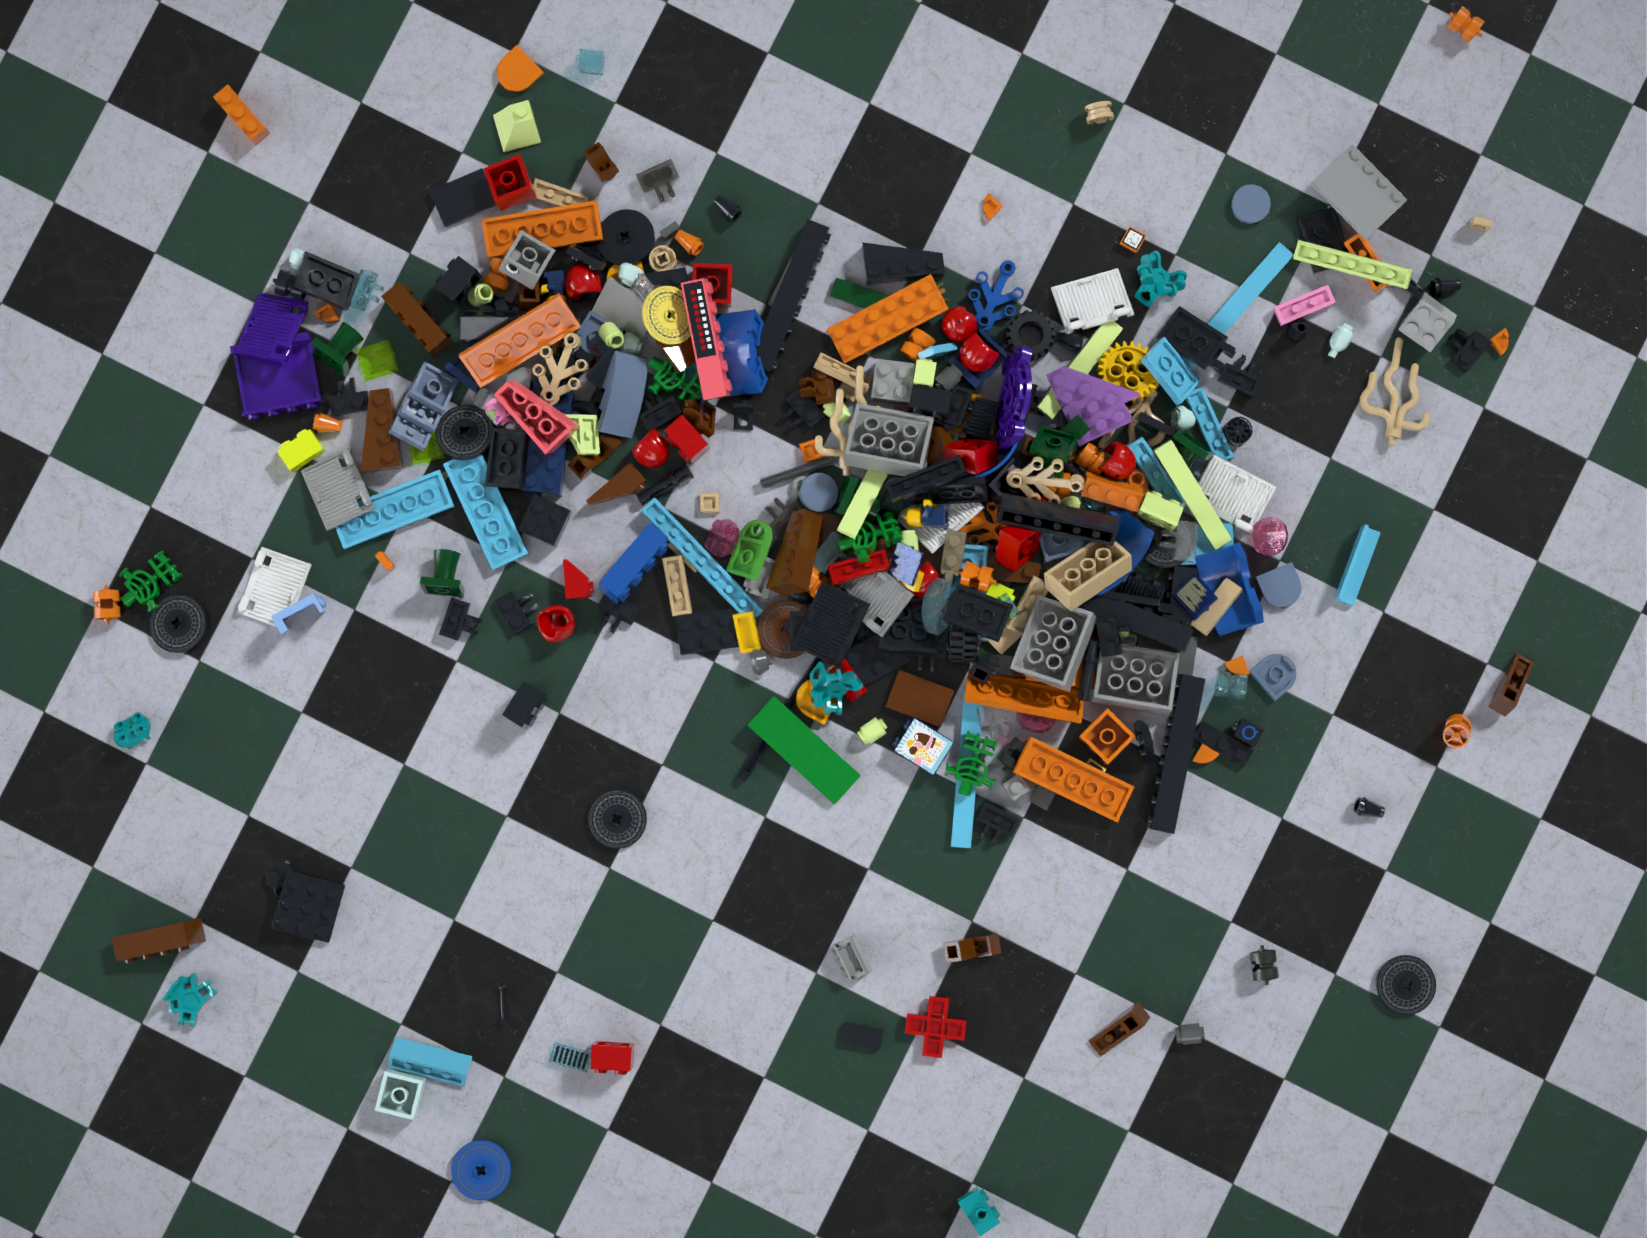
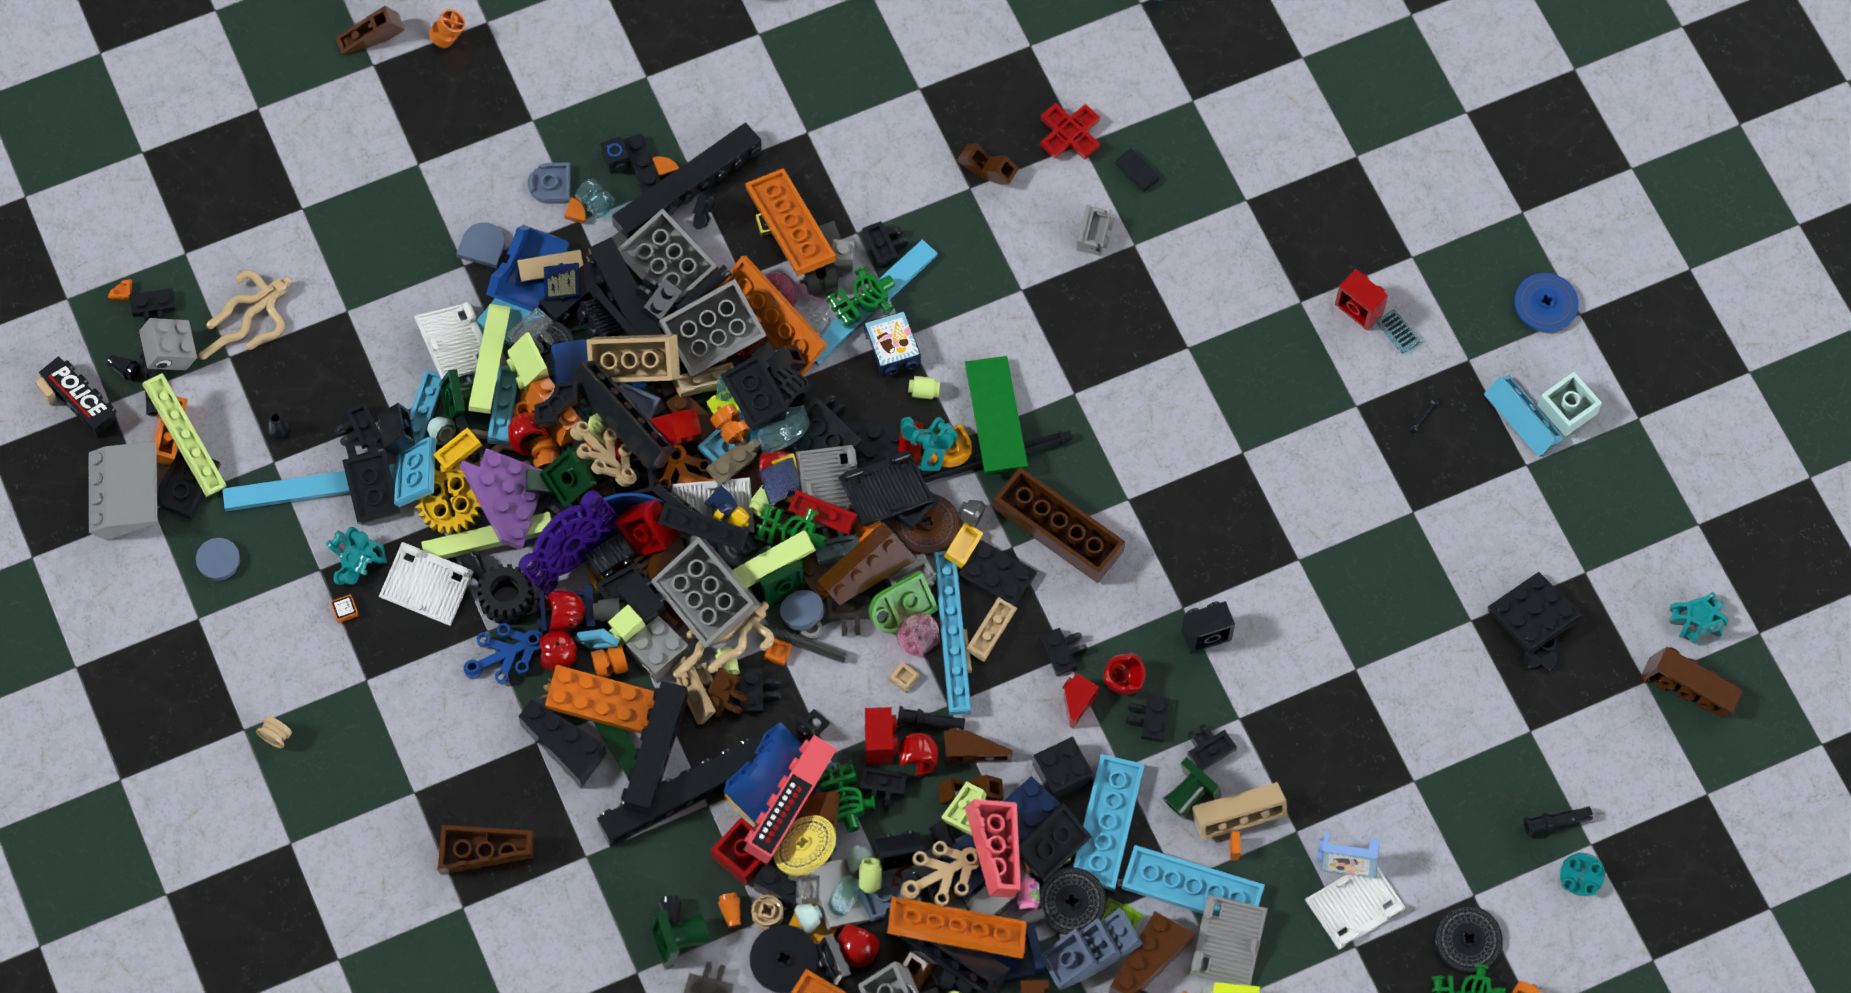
camera: 145 degrees left, 20 degrees down
(184, 753) = (1547, 822): none -> black pin
(400, 587) = (1240, 809): none -> tan brick
(553, 284) = (893, 951): dark blue piece -> none
(614, 834) = (1187, 484): black piece -> none
(618, 309) = (844, 896): none -> clear light blue tile
(623, 394) = (902, 816): sand blue slope -> none
(633, 563) = (1014, 666): blue brick -> none
(669, 231) = (739, 931): dark grey tile -> none
(690, 699) = (1058, 525): none -> reddish brown brick
(702, 414) = (849, 743): reddish brown hinge -> none
(705, 193) = (676, 936): none -> dark green plant
(829, 305) = (655, 748): none -> black brick
(890, 146) = (479, 847): none -> reddish brown wedge
(919, 698) = (861, 384): reddish brown tile -> none
(991, 207) = (439, 731): orange tile -> none
(1106, 736) = (733, 234): orange brick -> none
(1109, 498) = (563, 397): none -> black tile
(1120, 1029) = (917, 19): reddish brown slope -> none
(1152, 405) = (457, 449): none -> yellow tile
(1212, 391) = (395, 429): none -> black brick
(1237, 431) = (403, 386): black wheel -> none
(1270, 545) = (462, 276): clear pink plate -> none
(1304, 305) = (253, 442): bright pink plate -> none
(1340, 339) = (249, 392): light aqua plant -> none
(1357, 565) = (406, 212): medium azure panel -> none
(1366, 807) = (572, 32): black cone -> none
(1455, 238) = (79, 397): none -> black brick

